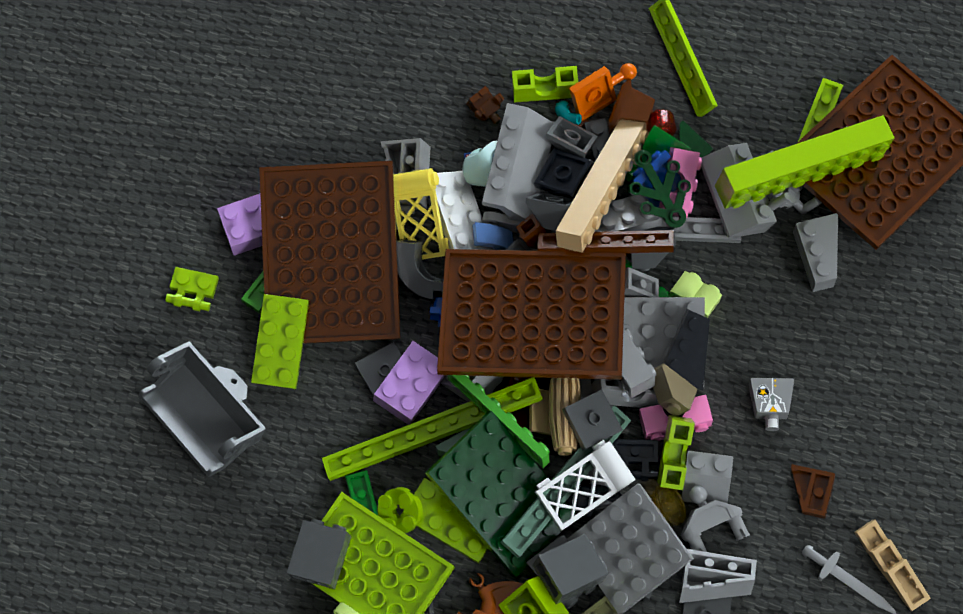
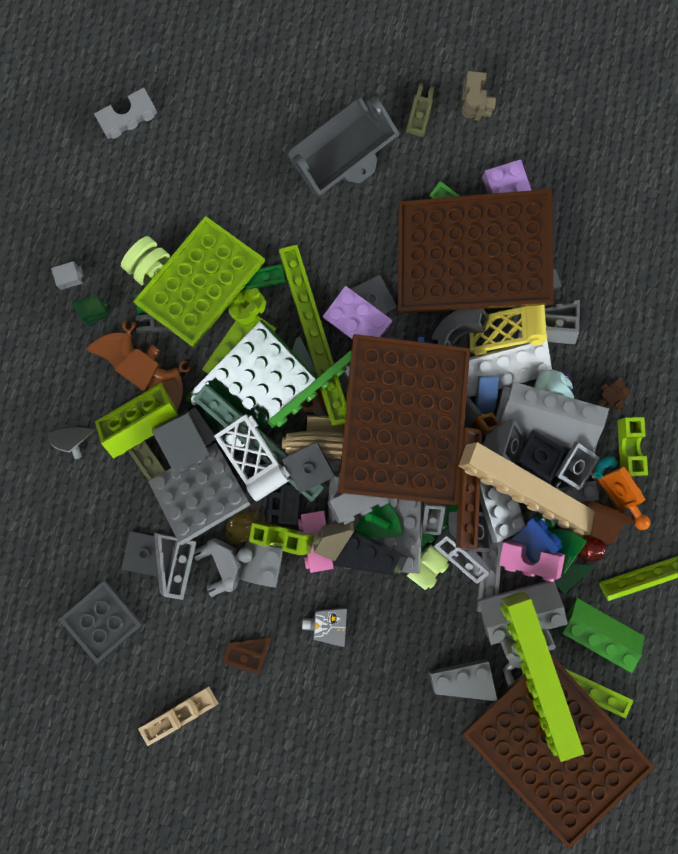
camera: 85 degrees right, 15 degrees up
(140, 264) = (476, 101): none -> dark tan hips
(154, 325) = (420, 112): none -> olive hinge
(194, 283) = (457, 145): lime plate -> none
(280, 341) = (400, 211): lime plate -> none
(319, 553) = (210, 237): dark grey brick -> none
(652, 340) = (380, 522): none -> green shield
(661, 191) = (520, 543): dark green plant -> none
(677, 262) = (466, 561): none -> light grey slope
(756, 109) = (603, 635): none -> bright green slope
(829, 567) = (181, 662): light grey sword -> none

